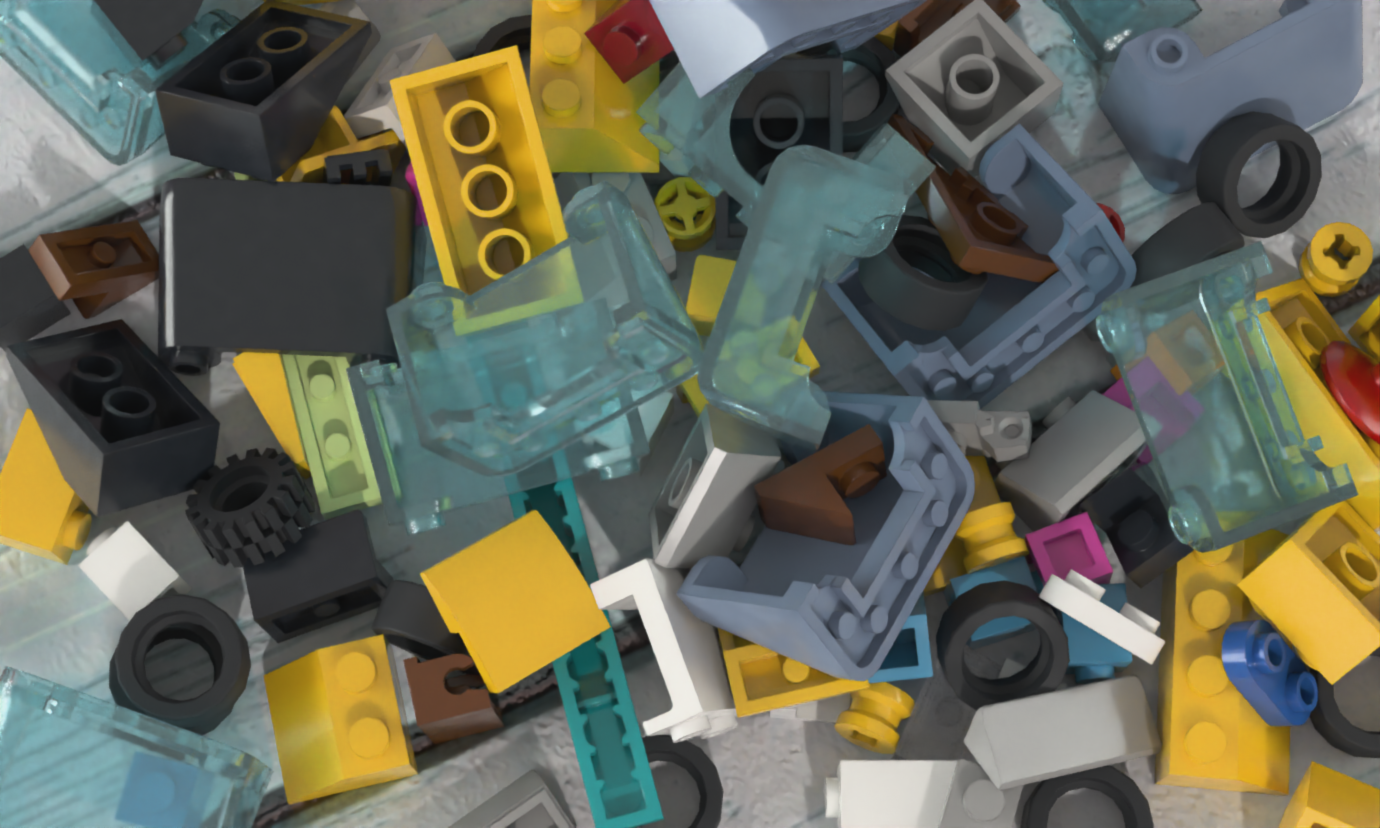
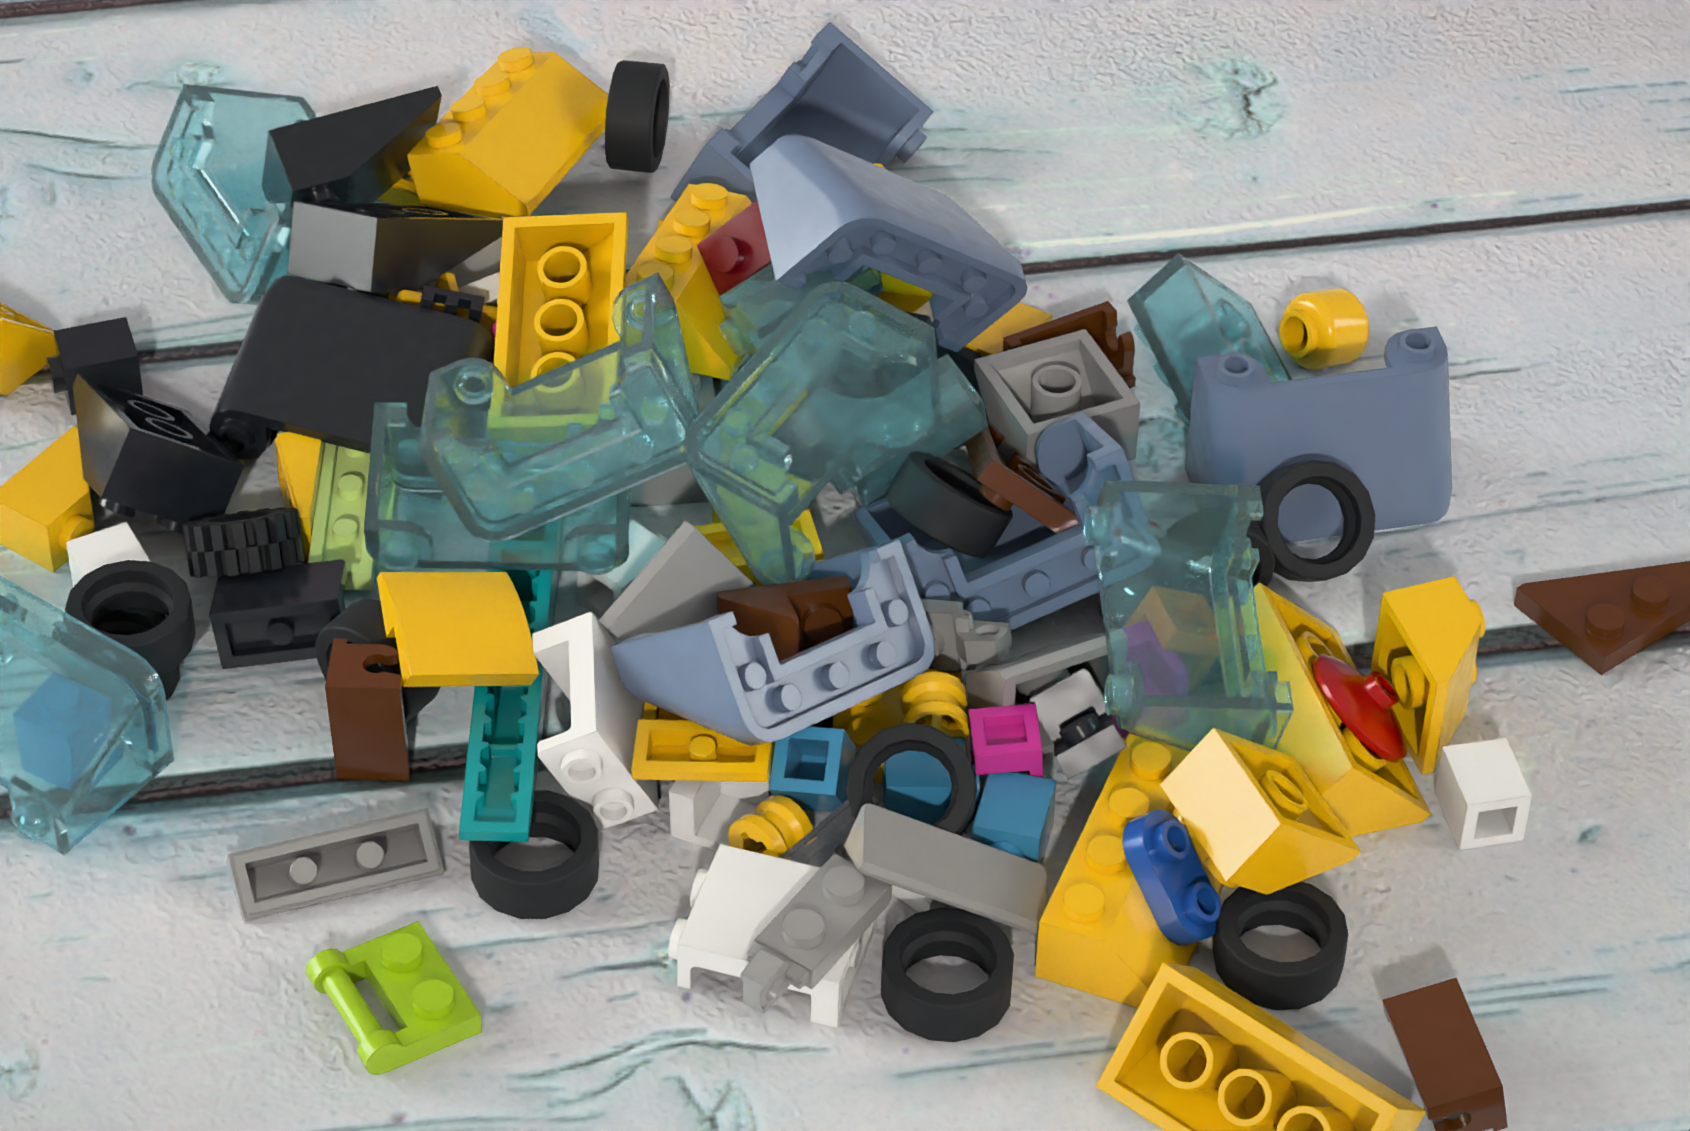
camera: 15 degrees right, 30 degrees down
(97, 264) = (183, 359): reddish brown slope -> none
(340, 720) = (258, 724): yellow slope -> none
(1081, 601) = (999, 756): white plate -> none
(1325, 270) = (1360, 612): yellow wheel -> none

